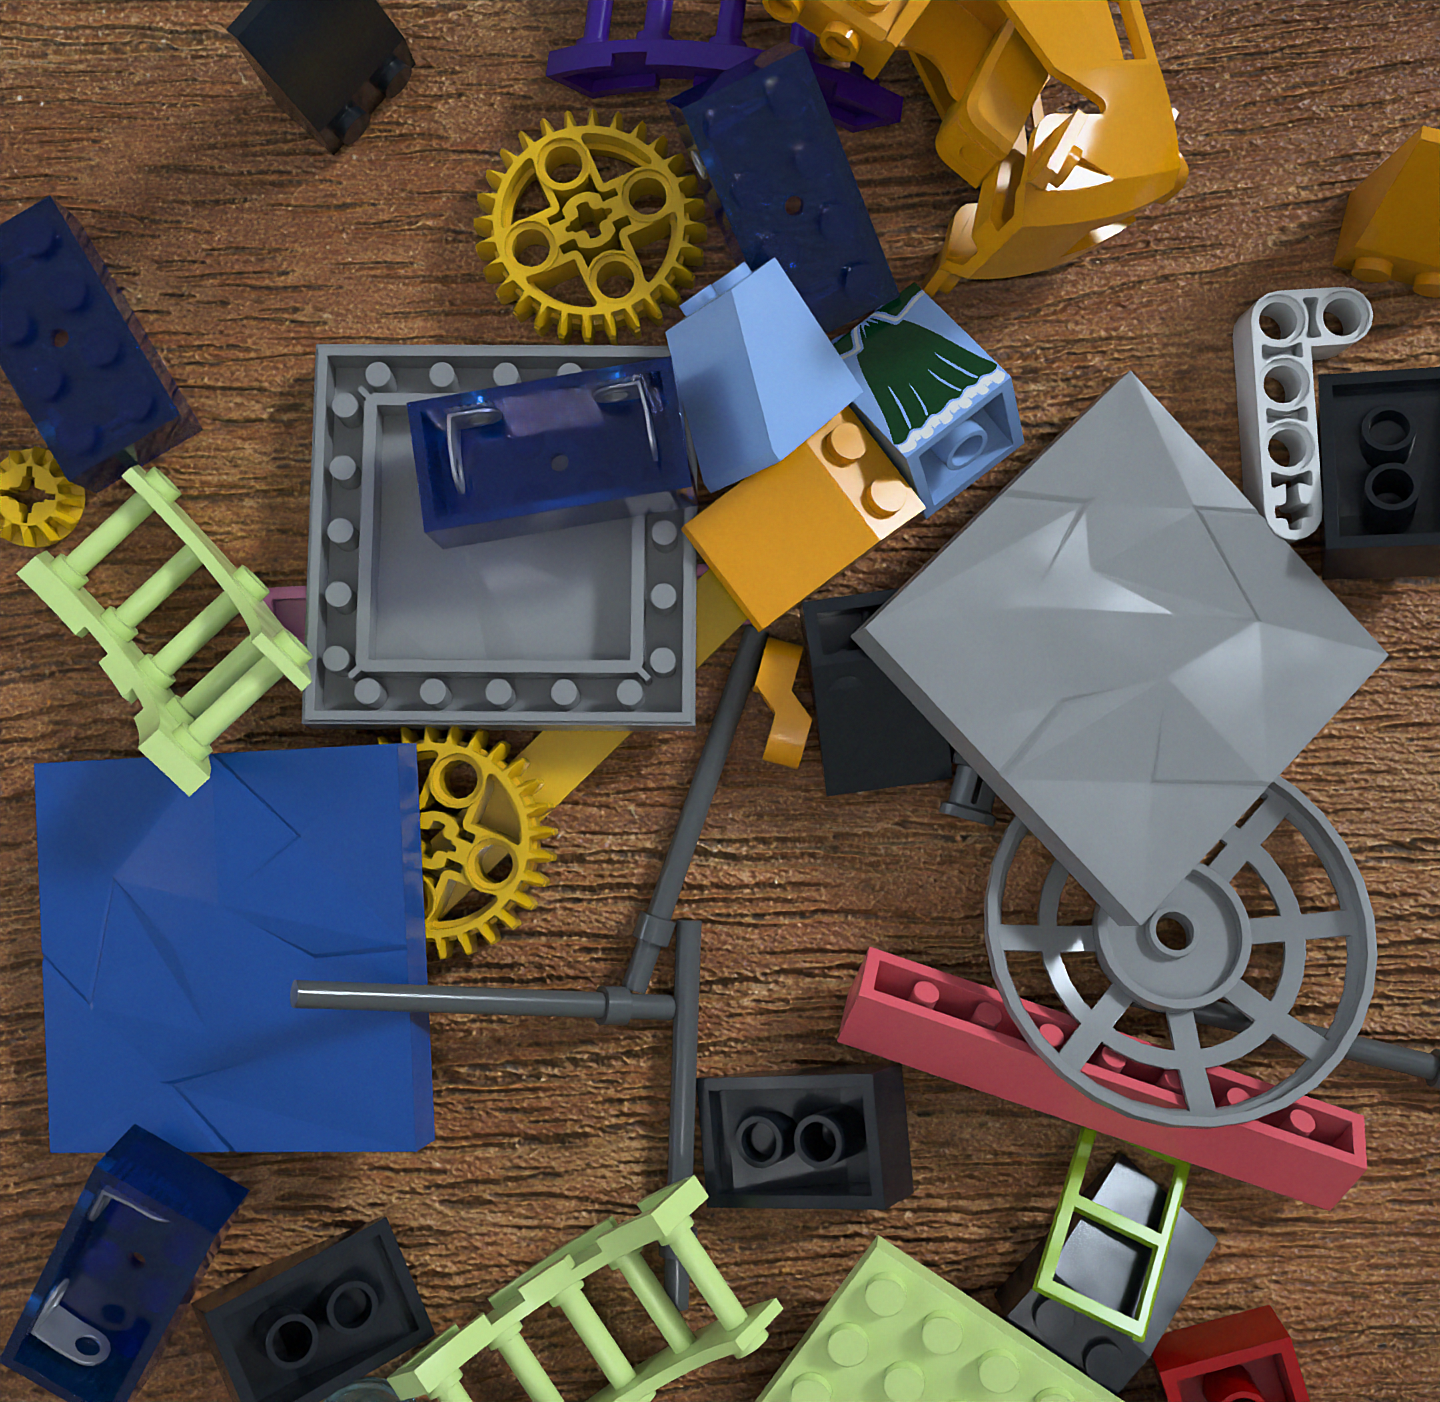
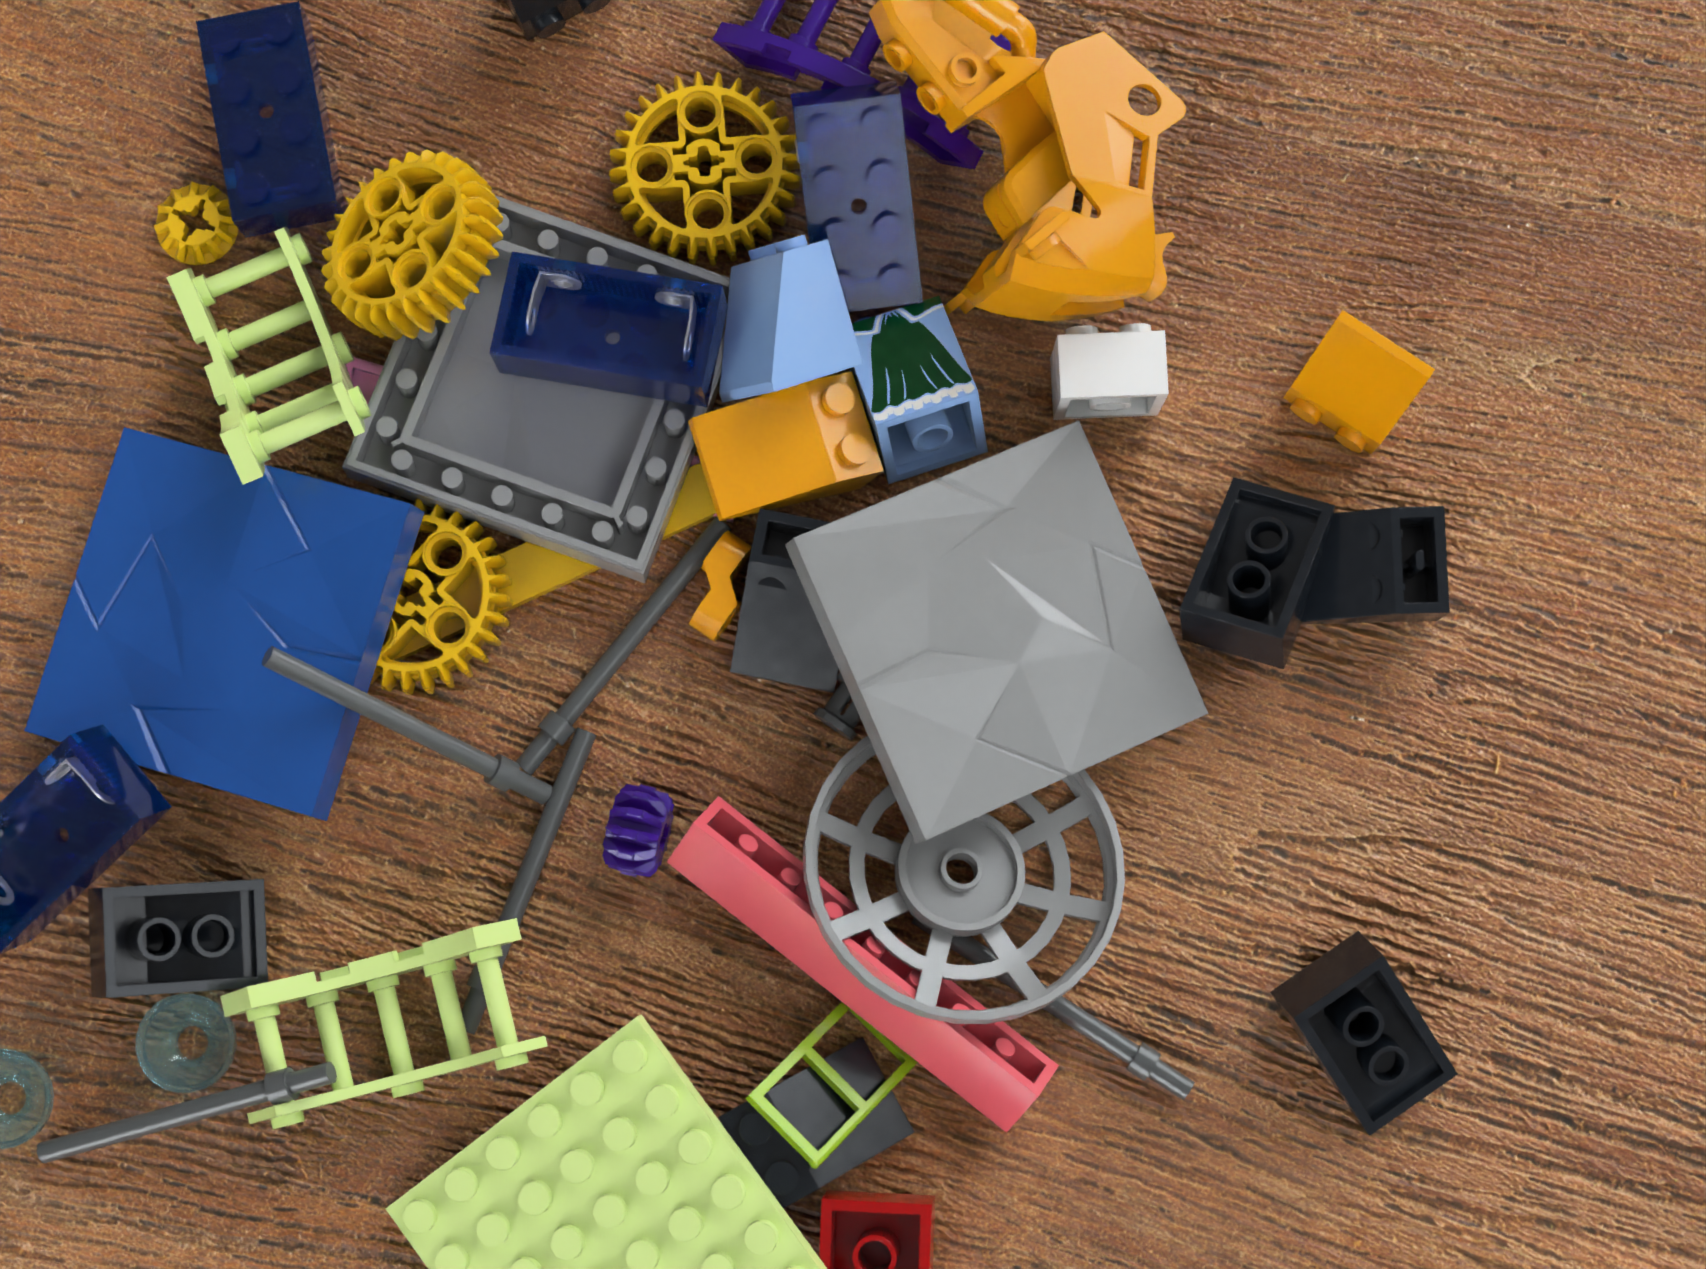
camera: 15 degrees right, 5 degrees down
(288, 435) = (412, 245): none -> yellow gear
(792, 1018) = (638, 830): none -> dark purple gear
(806, 1138) = (616, 930): black slope -> none
(1143, 301) = (1109, 372): none -> white brick
(1294, 421) = (1199, 503): white beam -> none

